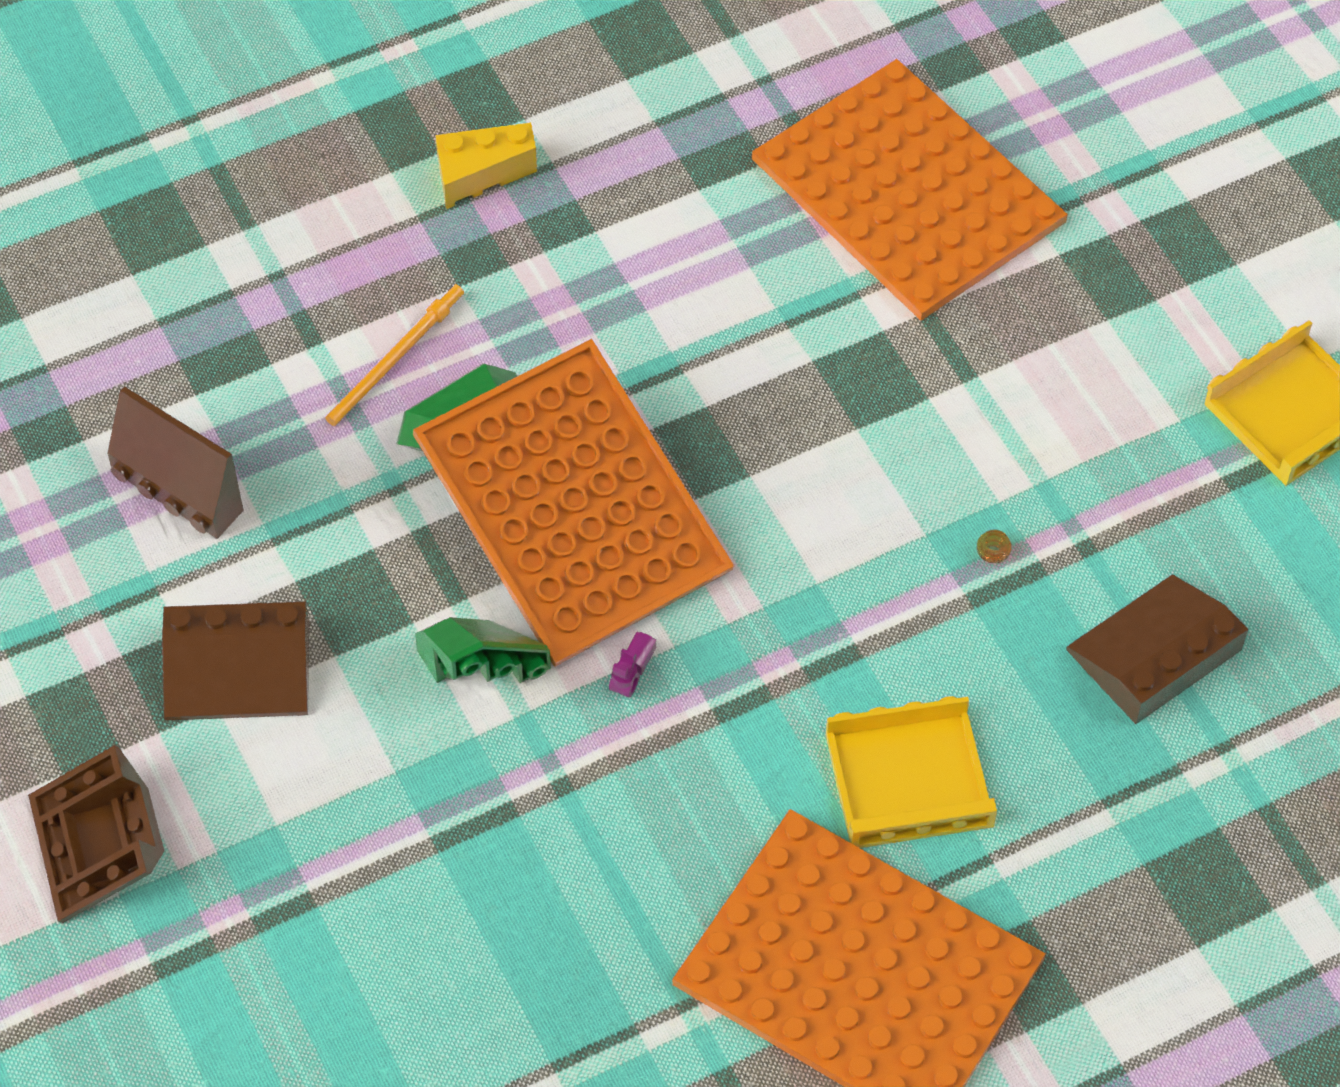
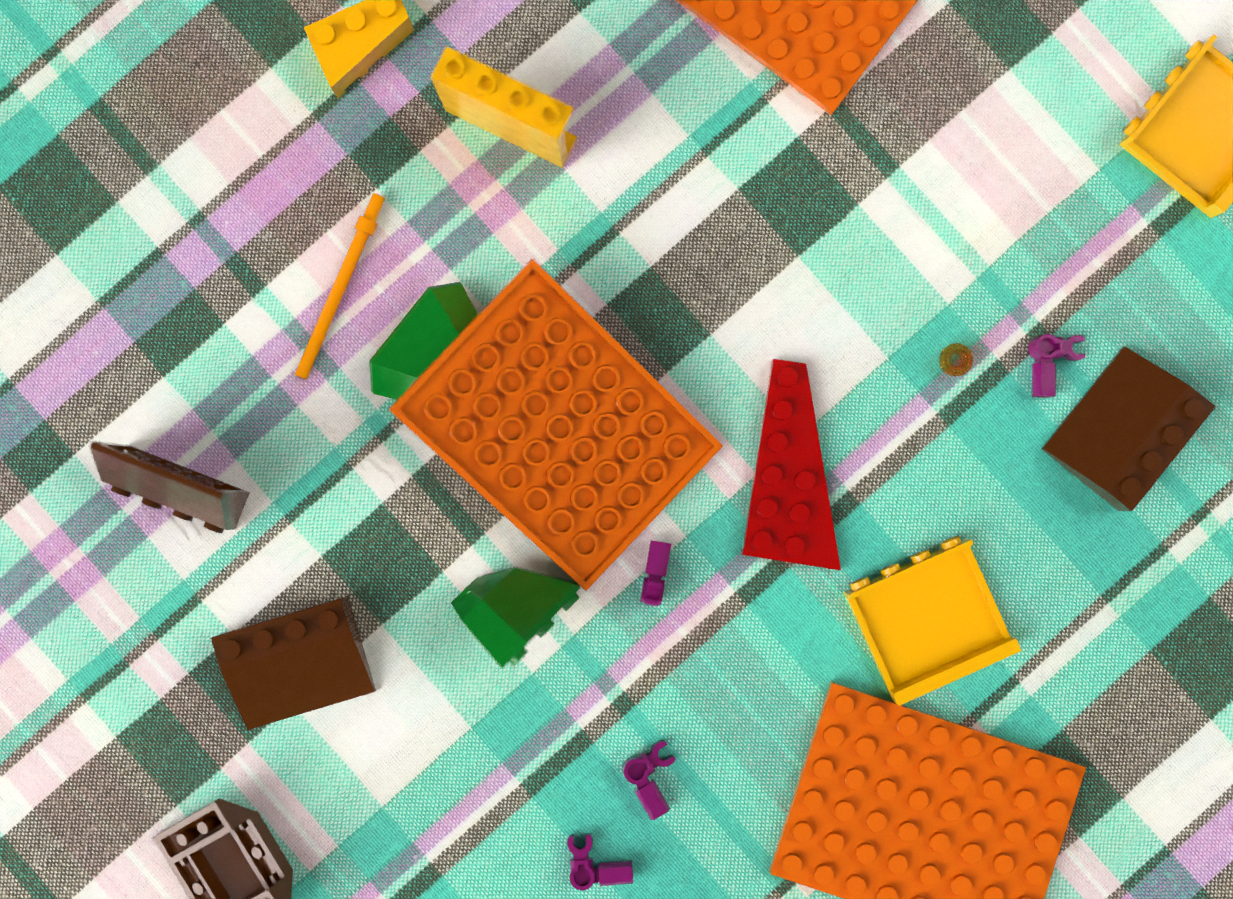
camera: 15 degrees left, 30 degrees up
(472, 935) = (606, 874): none -> magenta bar
(558, 849) = (636, 772): none -> magenta bar
(601, 226) = (503, 106): none -> yellow panel
(792, 627) = (789, 493): none -> red wing
(1087, 559) = (1044, 350): none -> magenta bar

